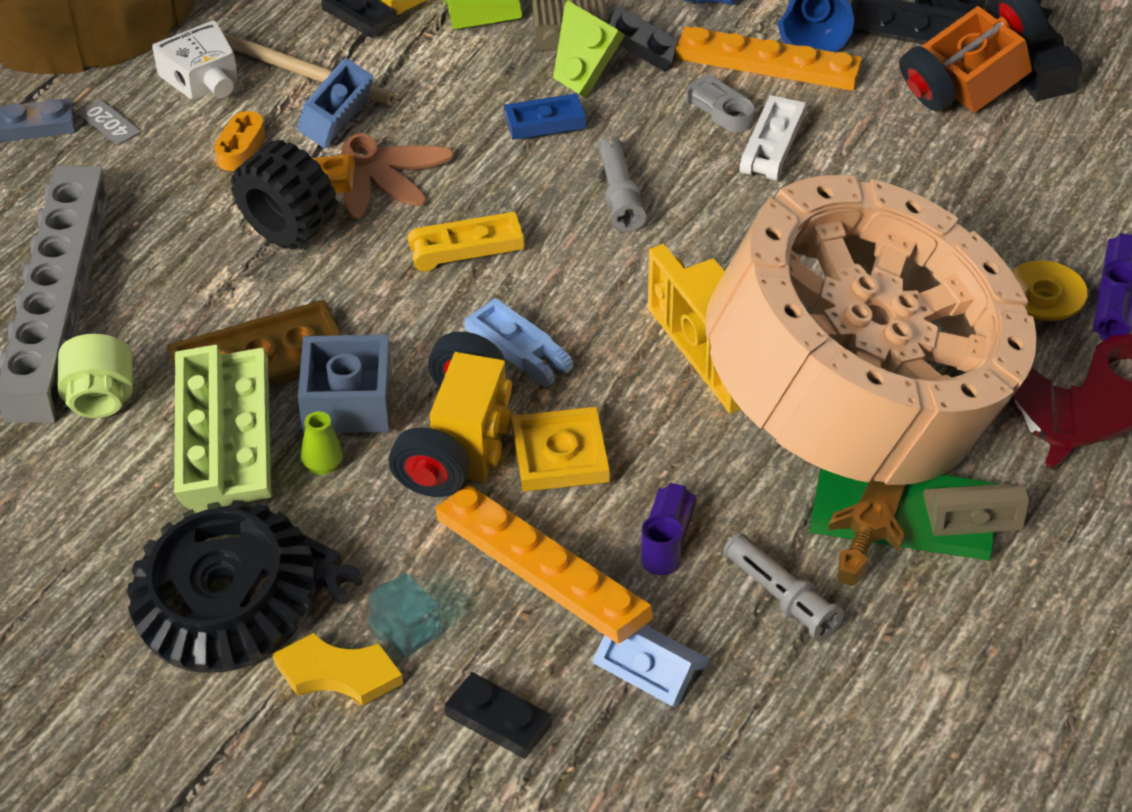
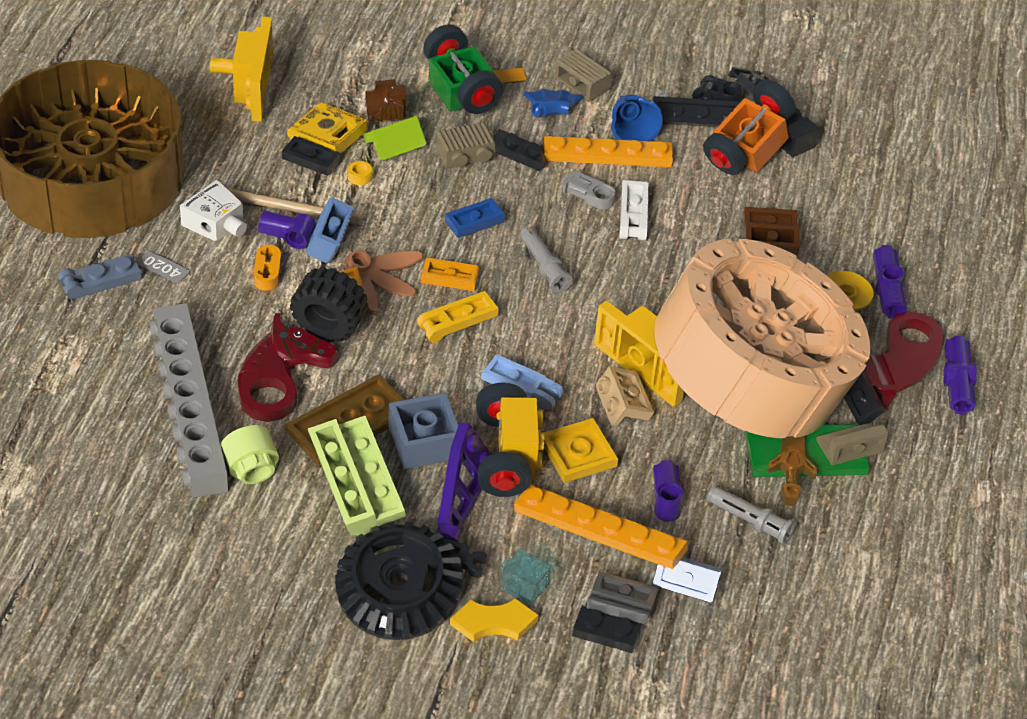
camera: 20 degrees left, 0 degrees up
(186, 268) = (270, 365): none -> dark red animal
(281, 92) = (294, 230): none -> dark purple piece
(320, 446) = (423, 475): lime cone -> none
(386, 414) = (469, 451): none -> dark purple plate
(417, 40) = (360, 173): none -> yellow tile
(481, 184) = (450, 274): none -> light orange tile
(536, 673) = (622, 597): none -> dark grey plate
(583, 49) = (486, 164): lime wing -> none
(657, 383) = (623, 395): none -> tan bracket
(963, 188) = (772, 227): none -> reddish brown brick
(1015, 444) = (863, 401): none -> black plate

